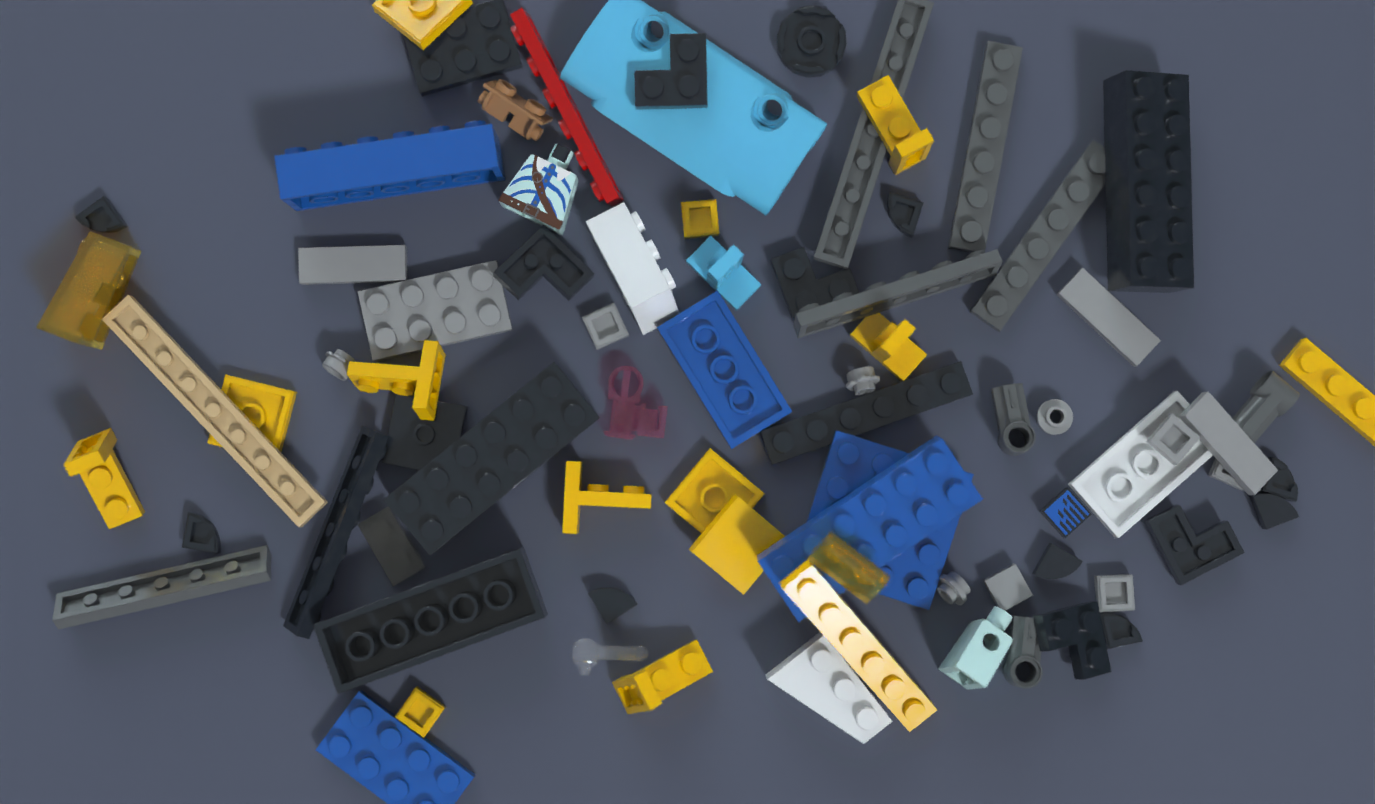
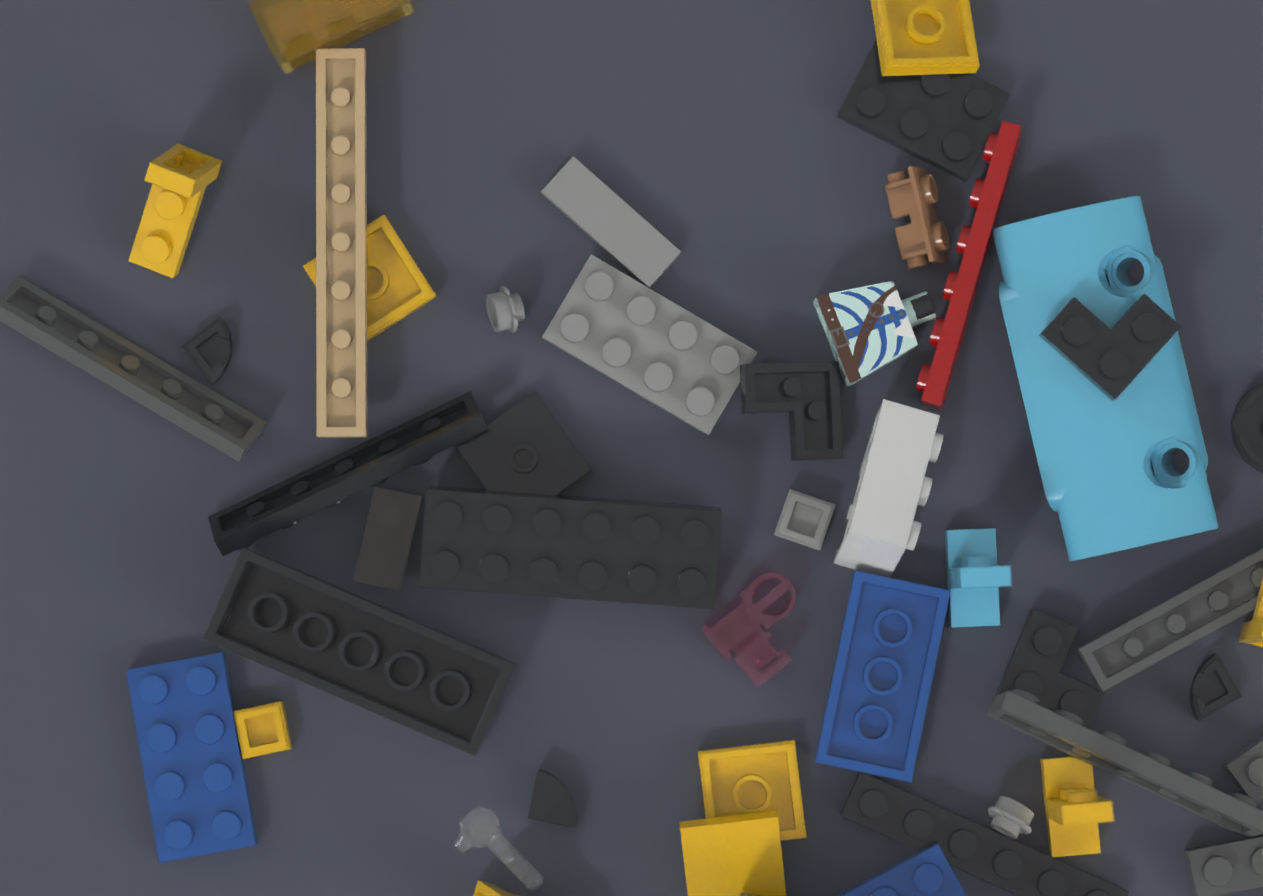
camera: 50 degrees right, 0 degrees up
(390, 166) = (741, 163): blue brick -> none
(405, 379) = (556, 387): yellow bracket -> none
(595, 496) = (637, 682): yellow bracket -> none
(700, 218) = (1000, 501): yellow tile -> none

